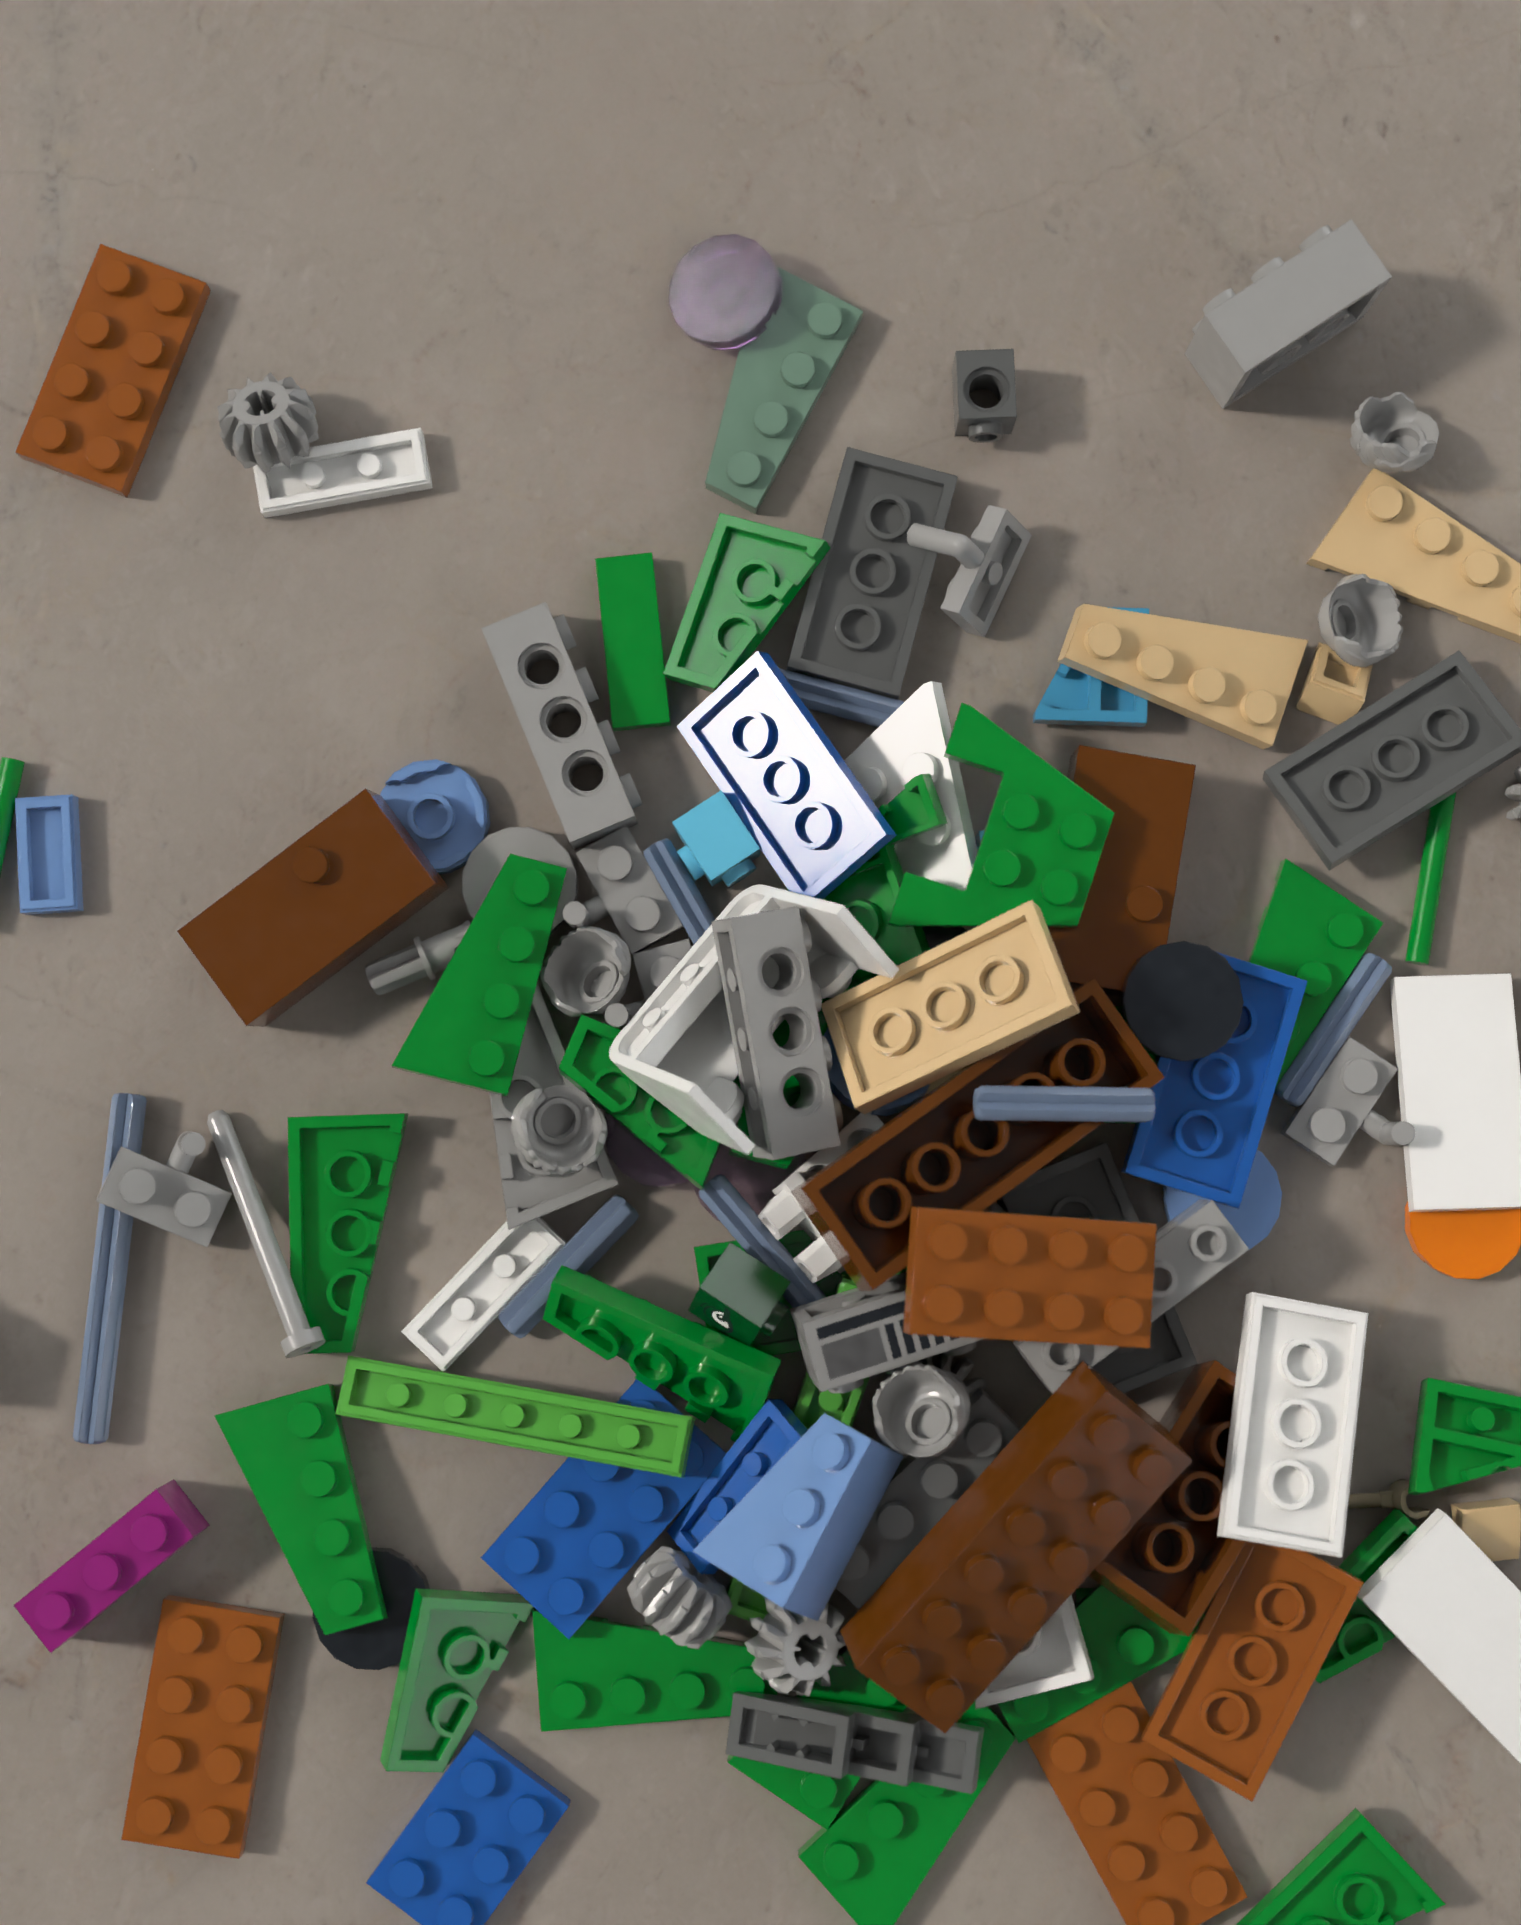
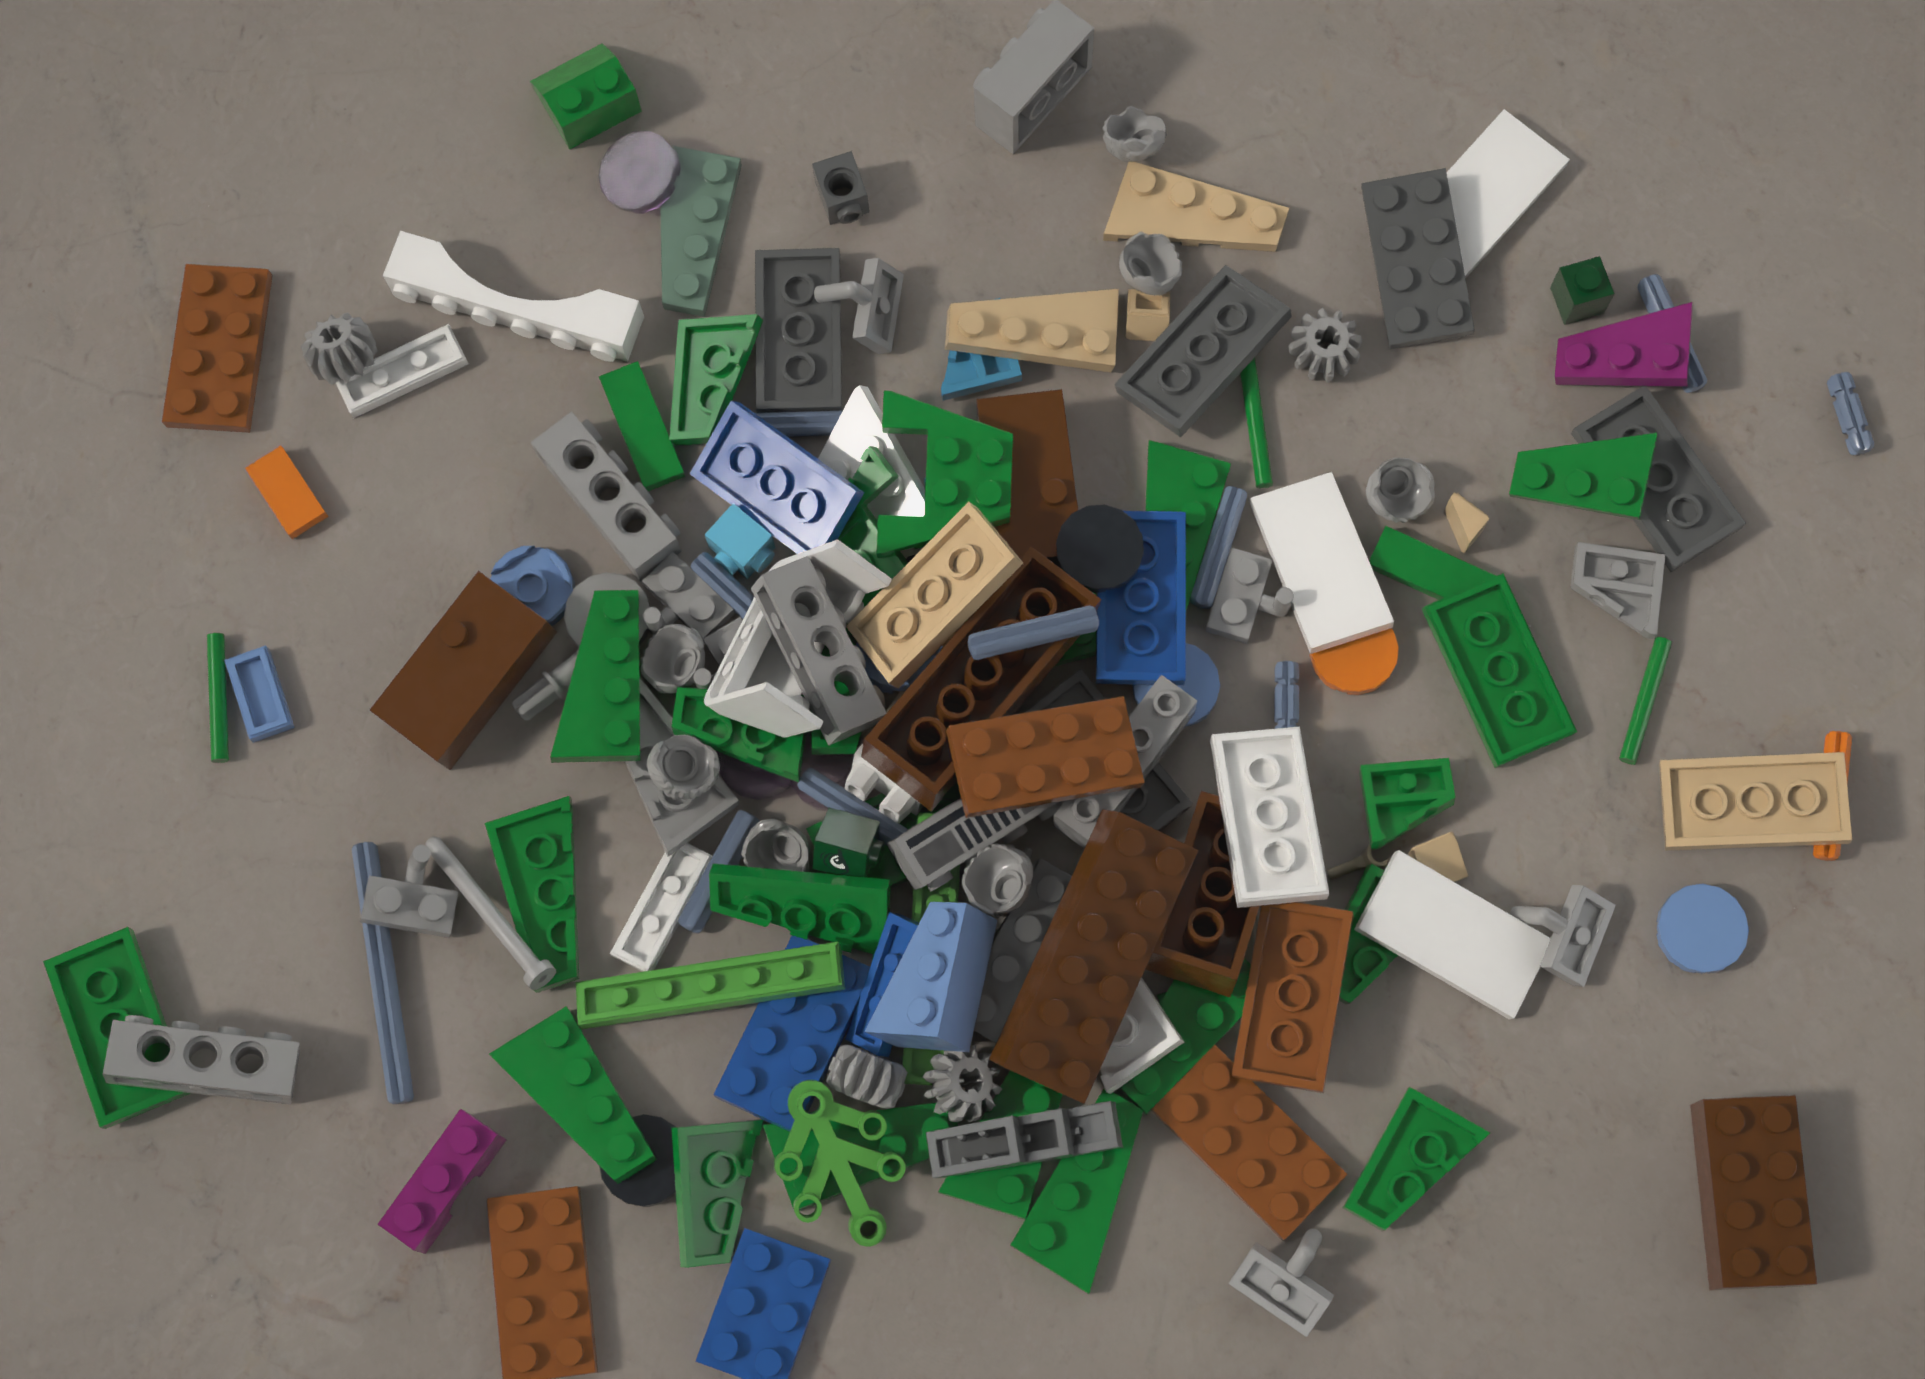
camera: 15 degrees left, 10 degrees down
(152, 594) = (286, 492): none -> orange tile
(608, 481) = (594, 321): none -> white arch
(610, 1687) = (834, 1156): none -> bright green plant
(648, 1265) = (776, 846): none -> light grey hair
(686, 161) = (587, 95): none -> green slope
(1358, 1259) = (1286, 694): none -> sand blue axle

